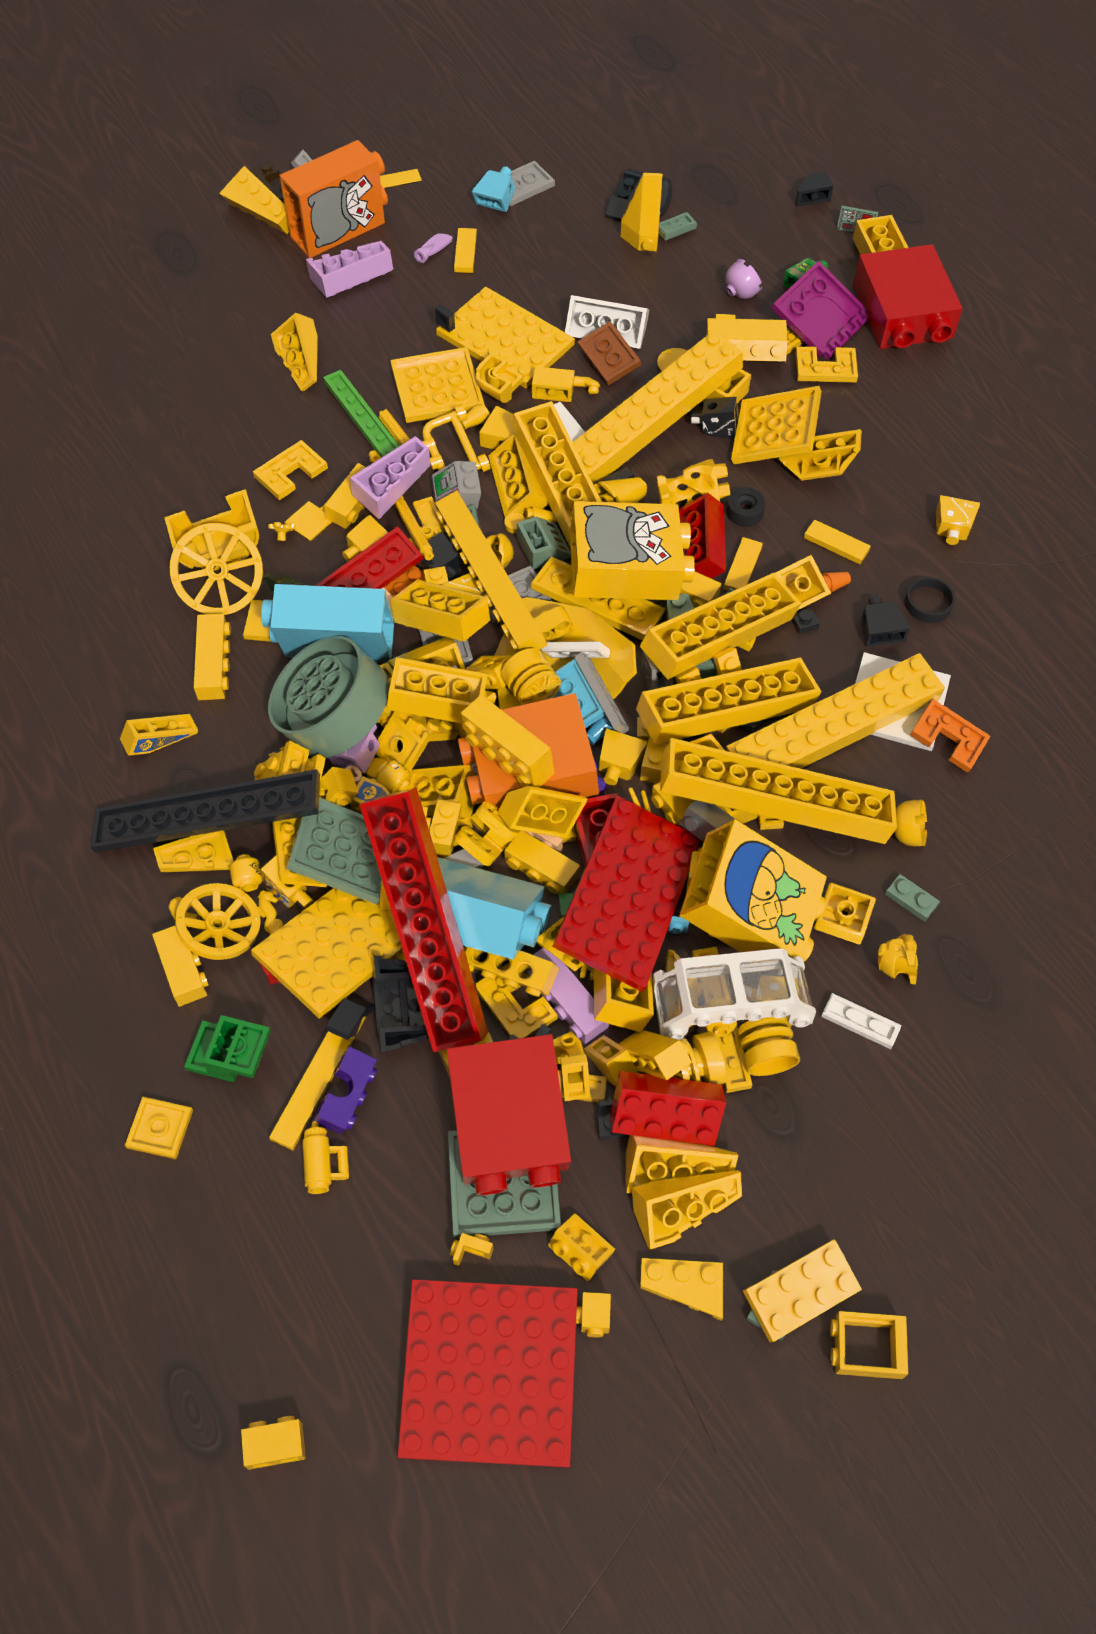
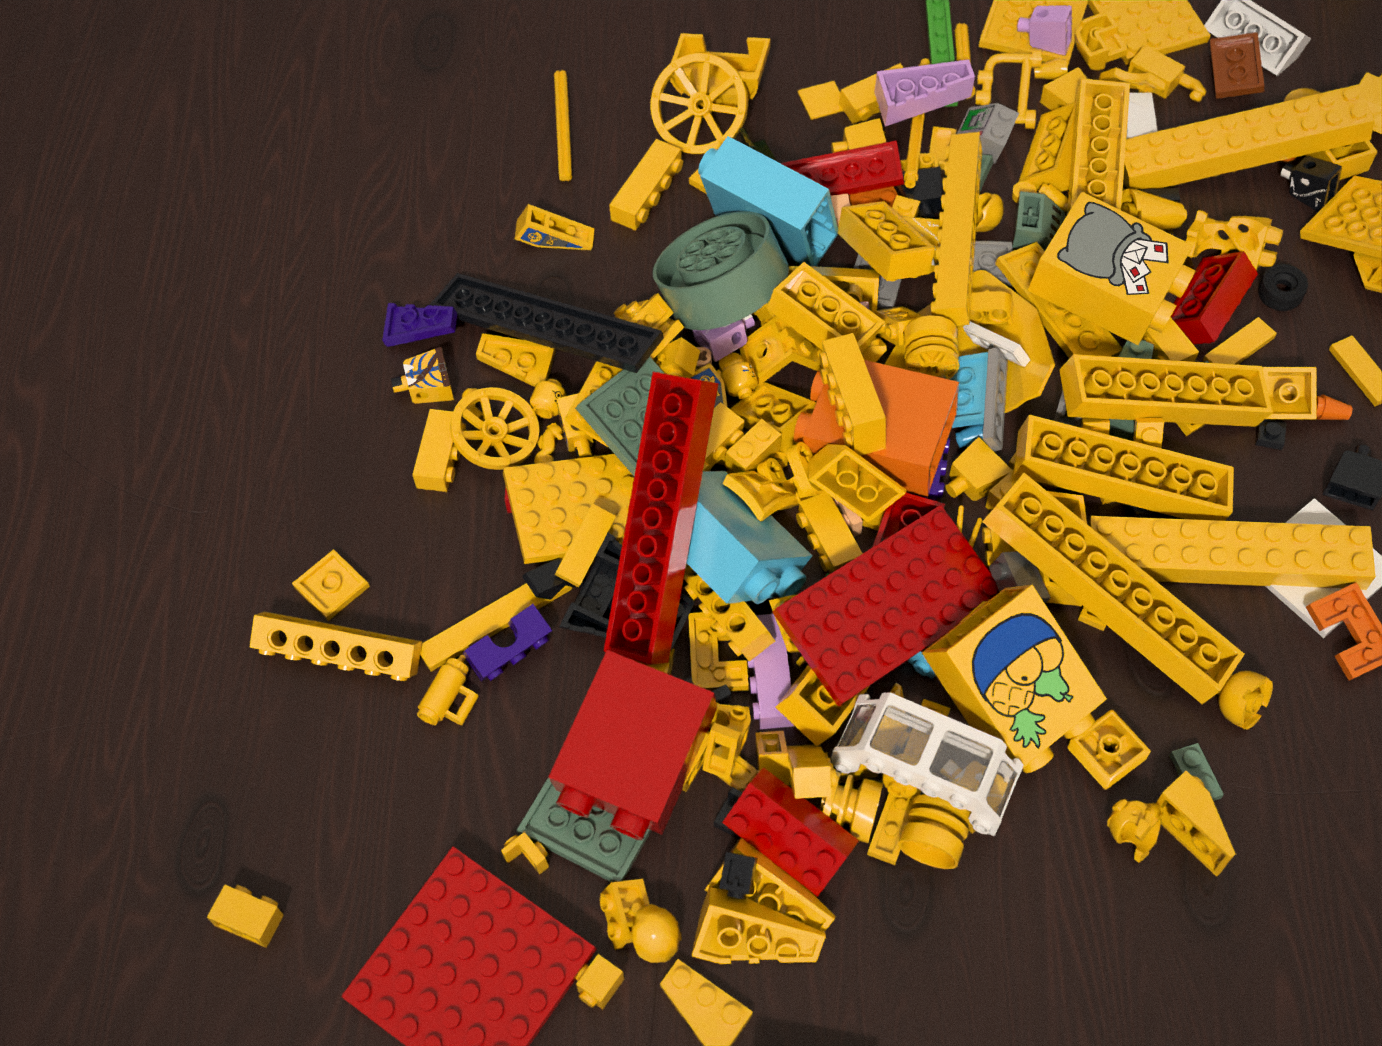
camera: 35 degrees right, 0 degrees up
(88, 870) = (414, 324): none -> dark purple wing
(105, 641) = (563, 129): none -> yellow axle
(128, 910) = (425, 378): none -> torso
(138, 1207) = (404, 651): none -> yellow brick
(227, 1049) = (428, 546): green bracket -> none
(274, 472) = (817, 37): yellow plate -> none
(281, 529) = (788, 96): yellow plant -> none
(361, 976) = (585, 545): none -> yellow tile
(456, 384) = (1049, 28): none -> lavender torso
(474, 858) = (759, 493): none -> yellow plate
(531, 400) = (1144, 82): none -> yellow tile
(615, 1249) = (655, 934): none -> yellow hair
(652, 1165) = (738, 875): none -> black bracket
(861, 1021) = (1055, 866): white tile -> none
(940, 931) = (1195, 822): none -> yellow slope

